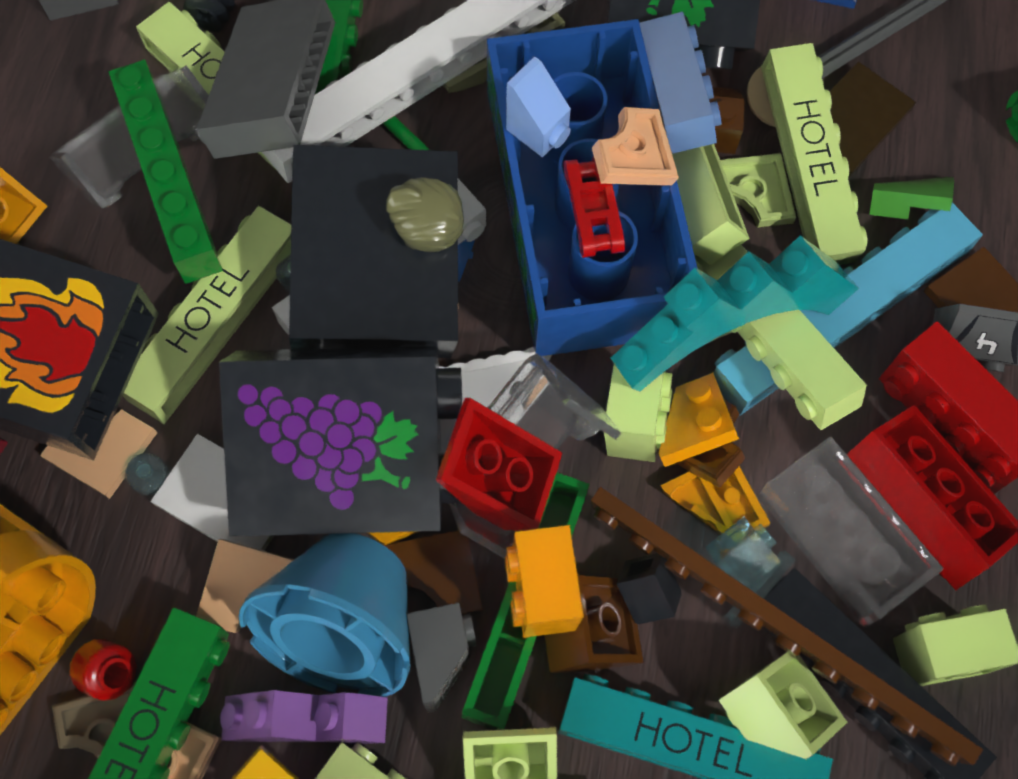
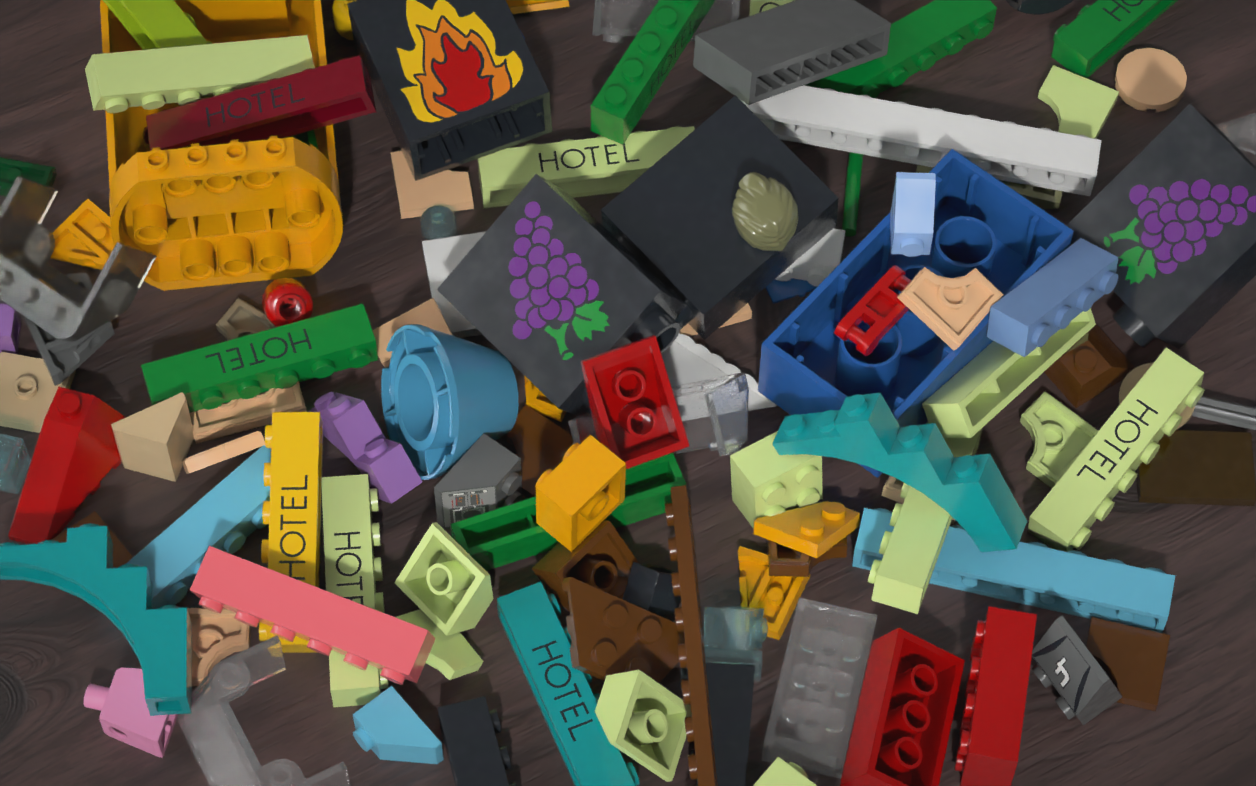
camera: 50 degrees right, 10 degrees down
(685, 658) = (617, 635): none -> reddish brown wing
(896, 198) = (1146, 541): bright green slope -> none

